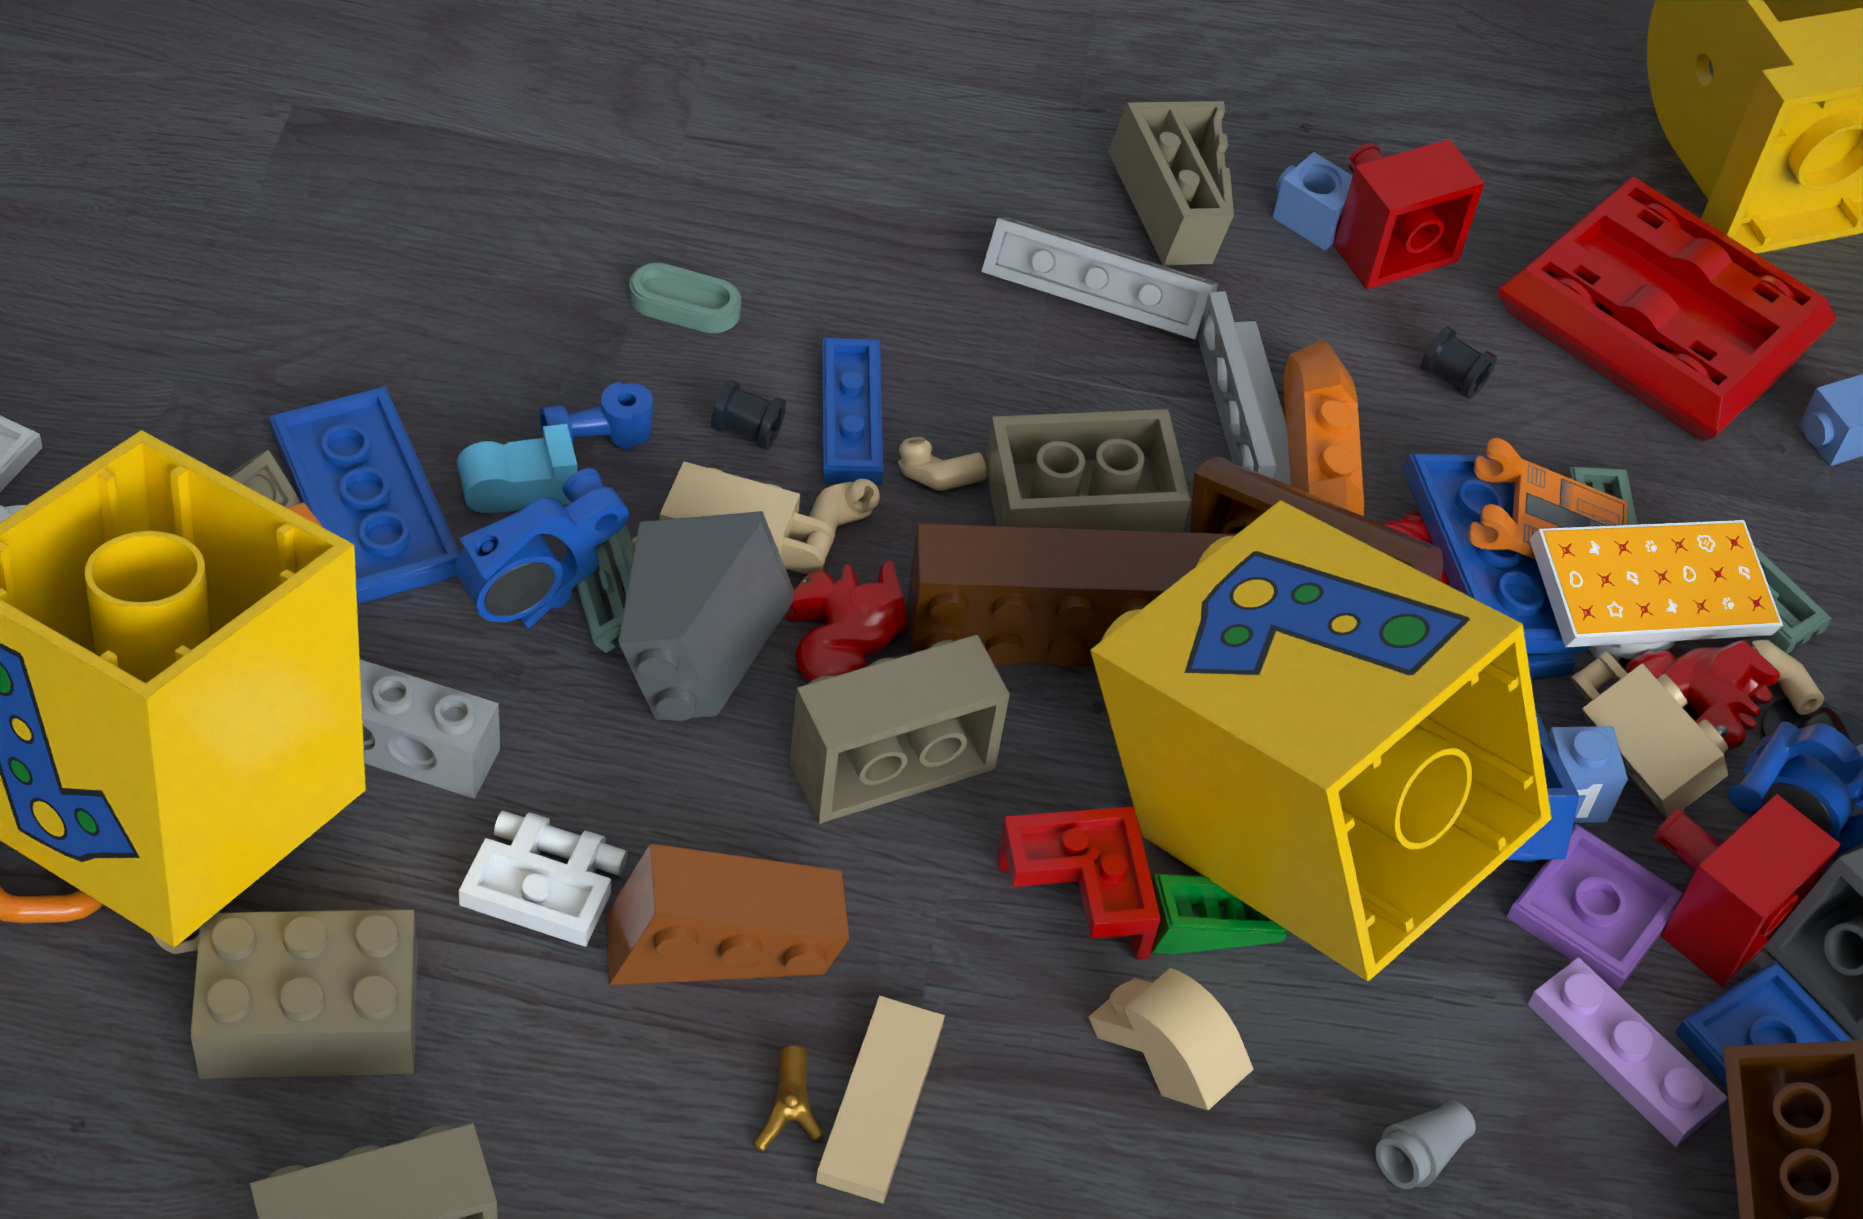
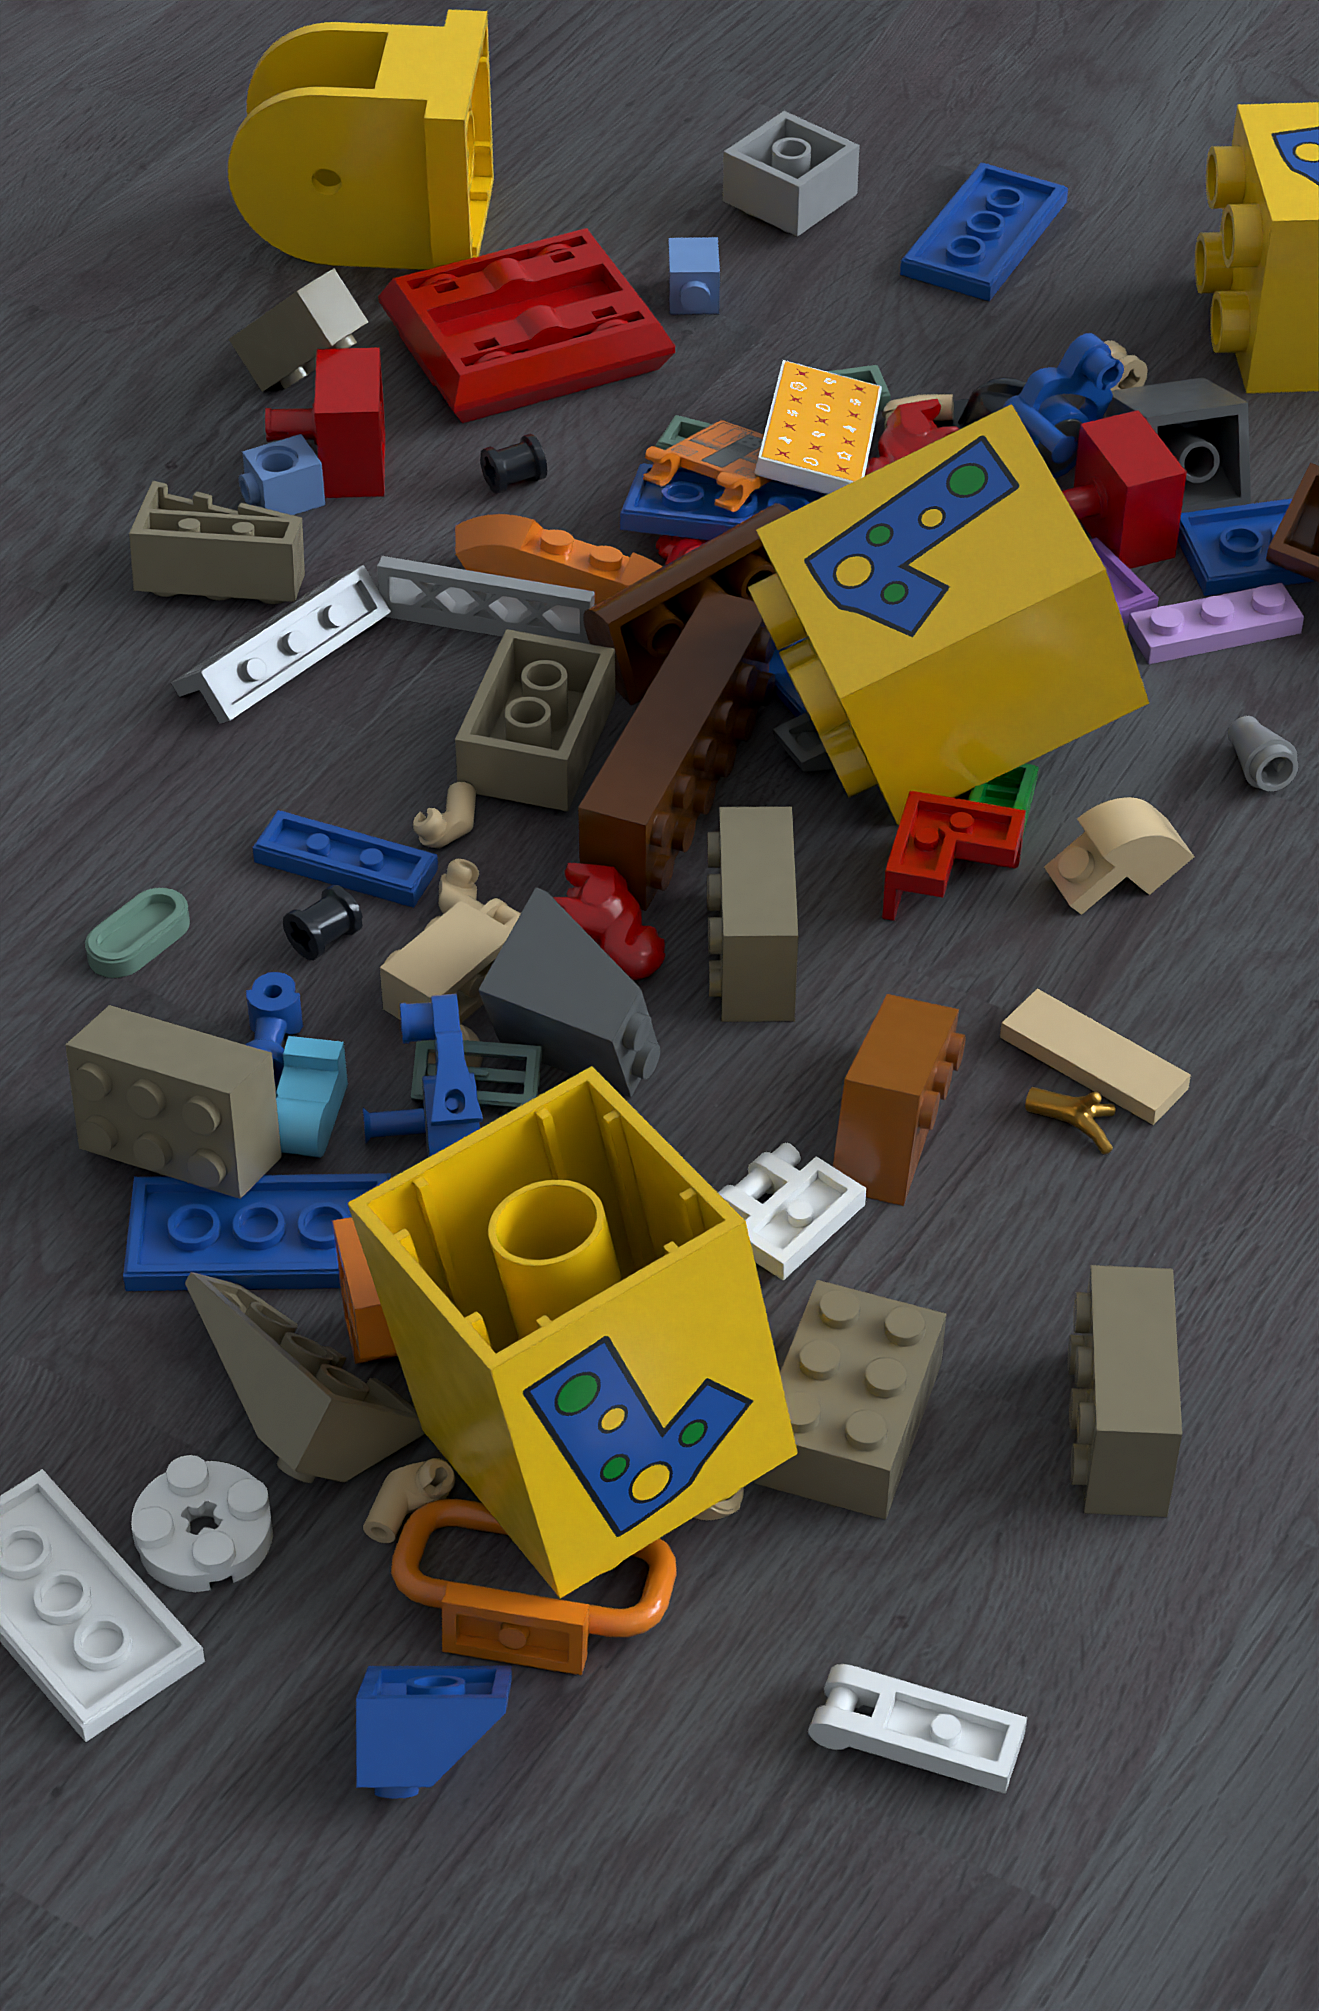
camera: 60 degrees left, 5 degrees down
(436, 366) = (174, 1101): none -> dark tan brick
(1513, 135) = (287, 337): none -> dark tan wedge

